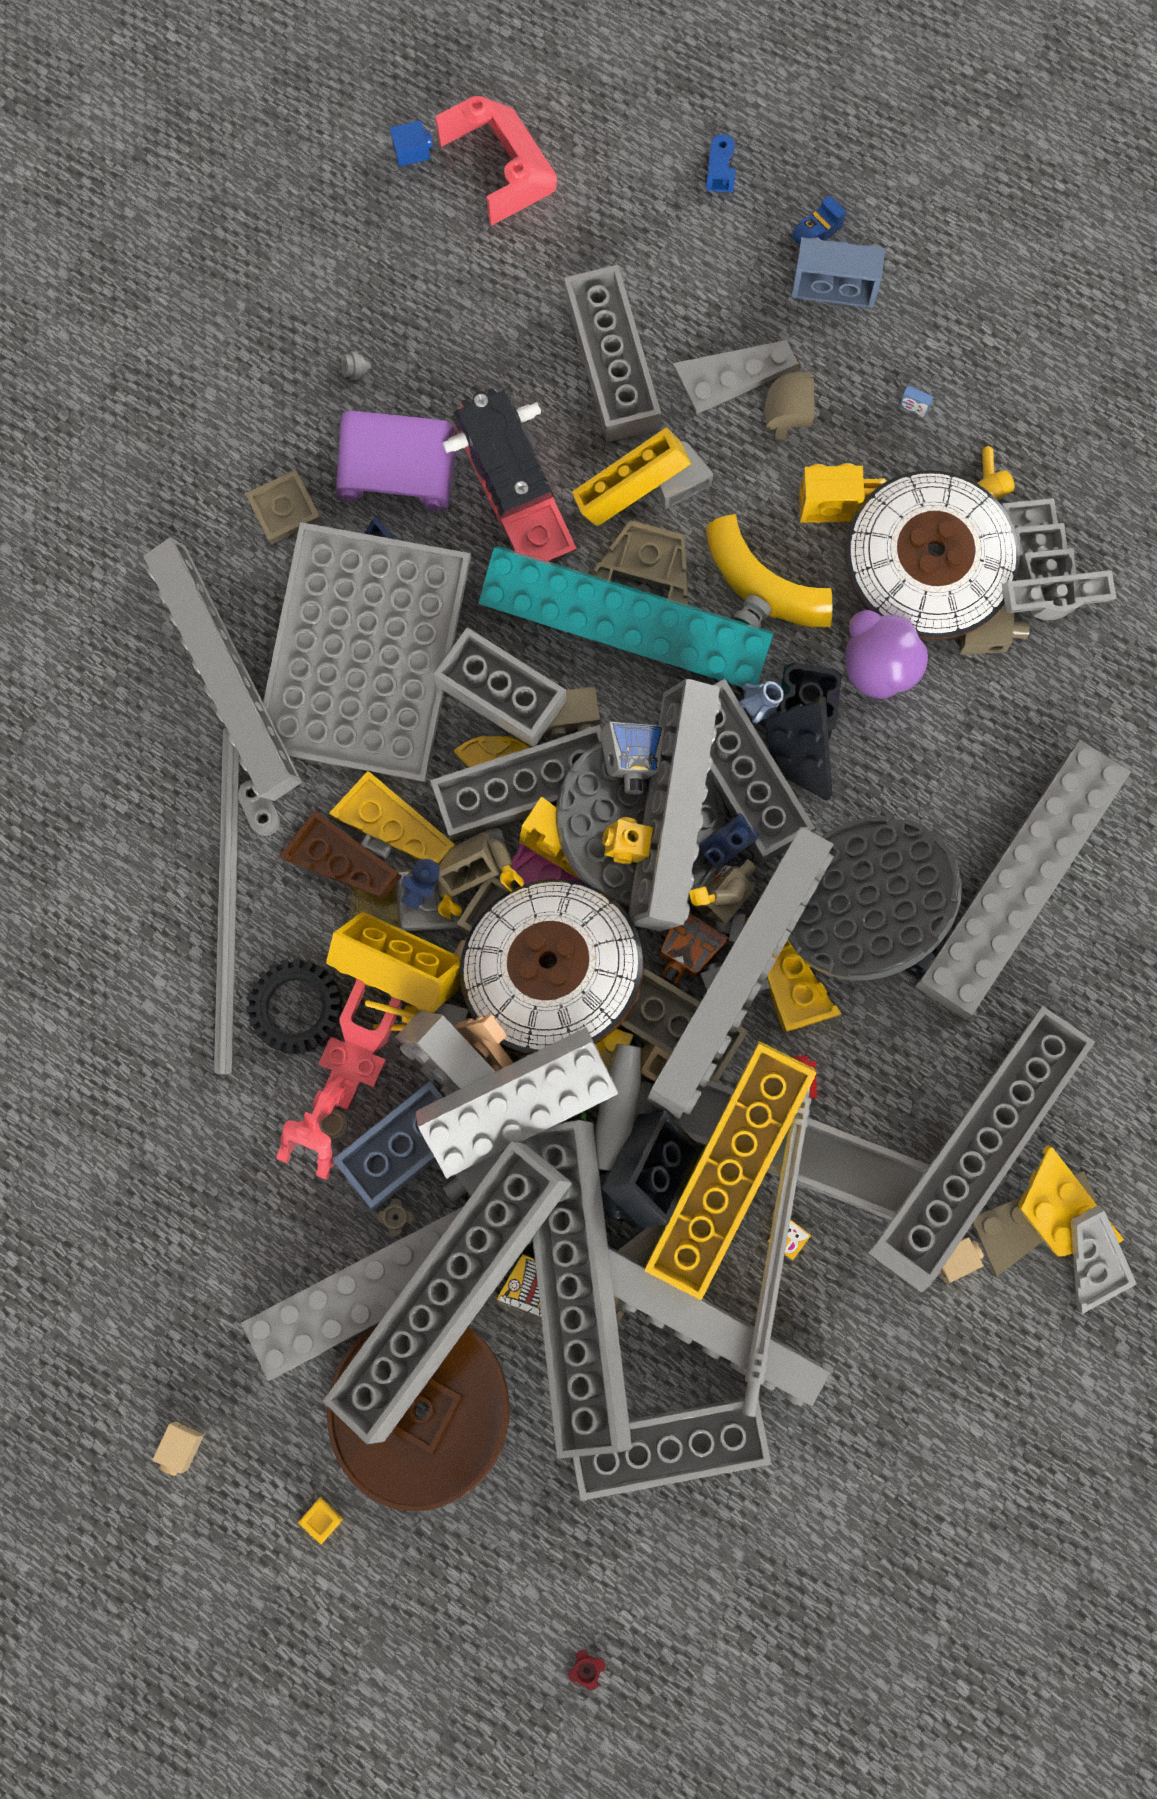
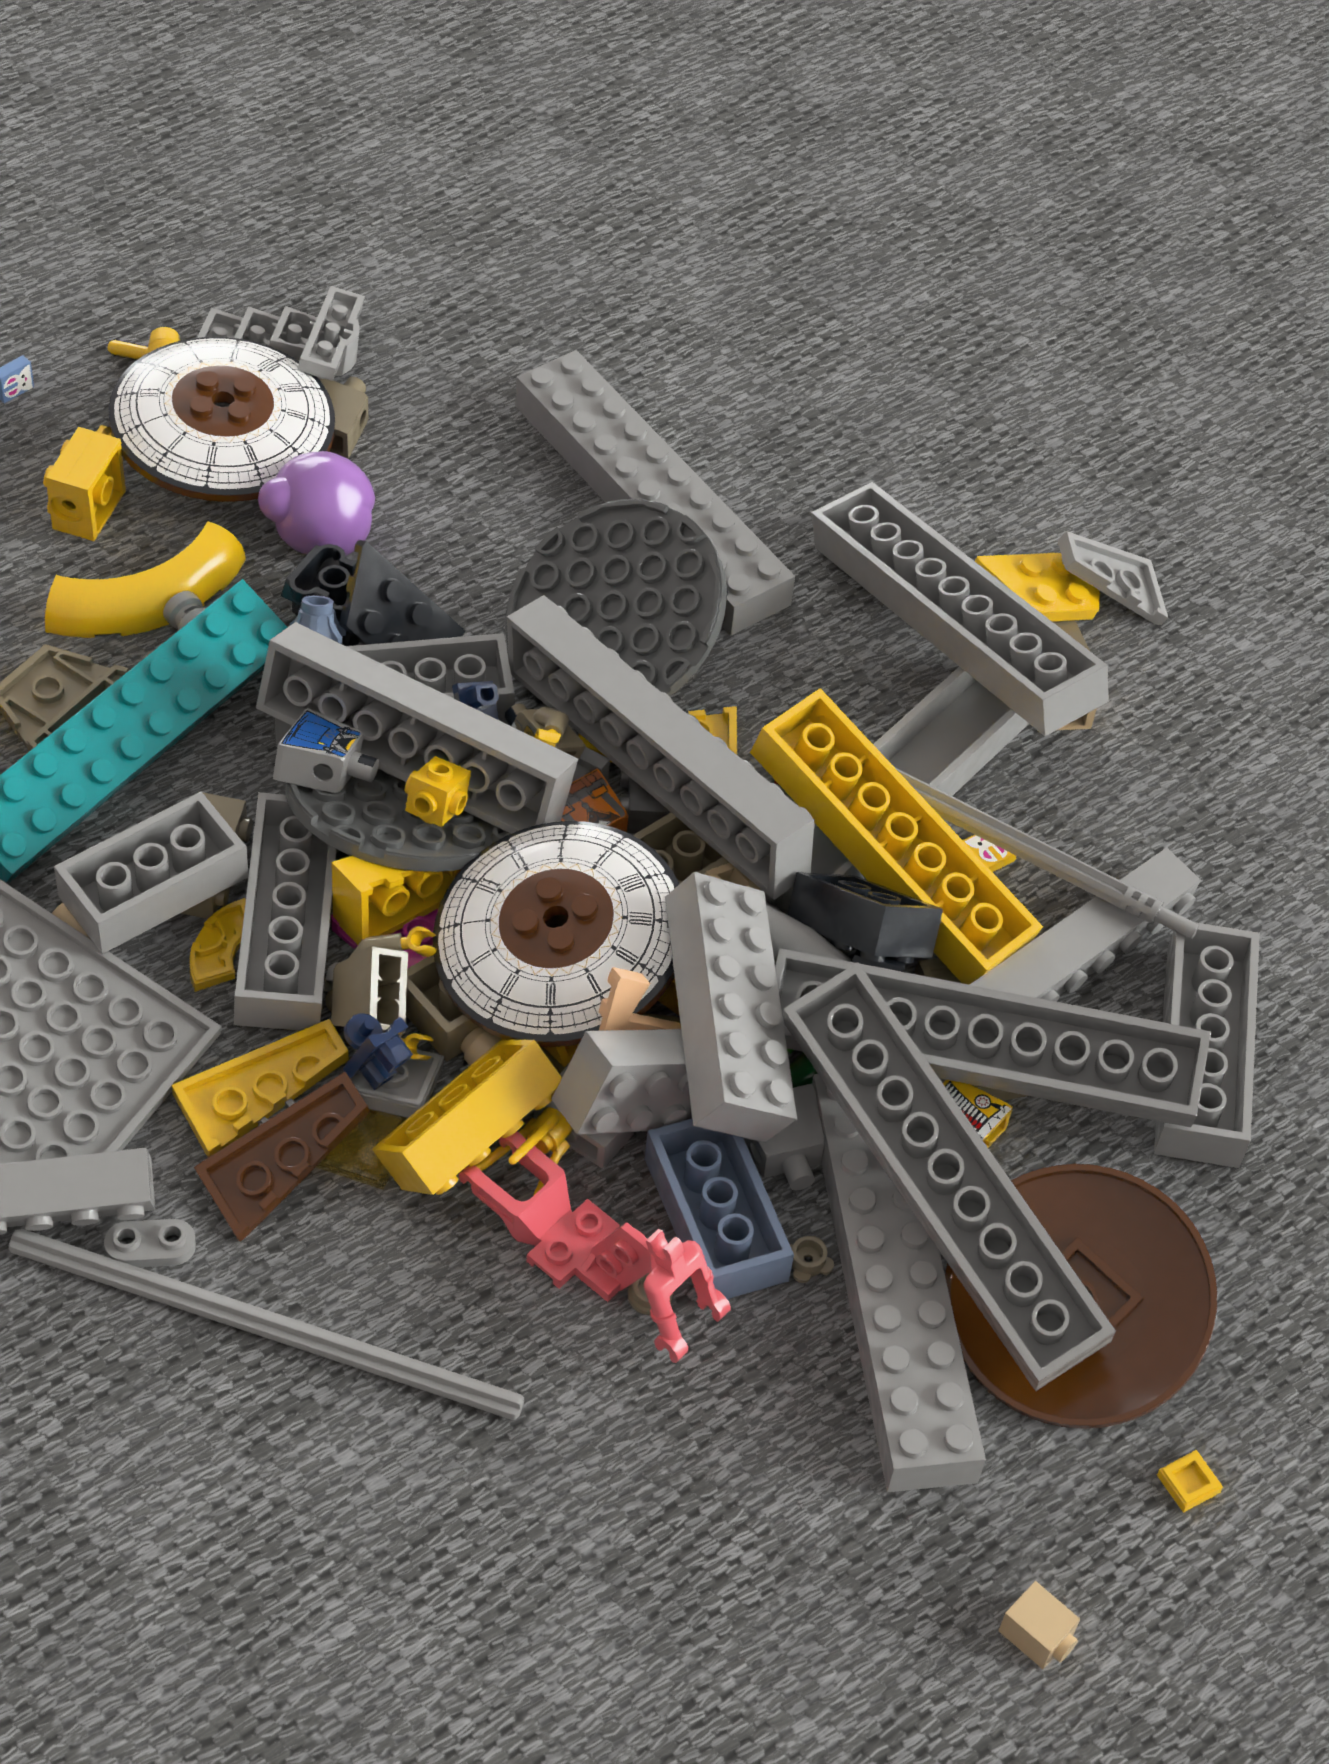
camera: 80 degrees left, 25 degrees down
(273, 979) = (473, 1237): black tyre -> none

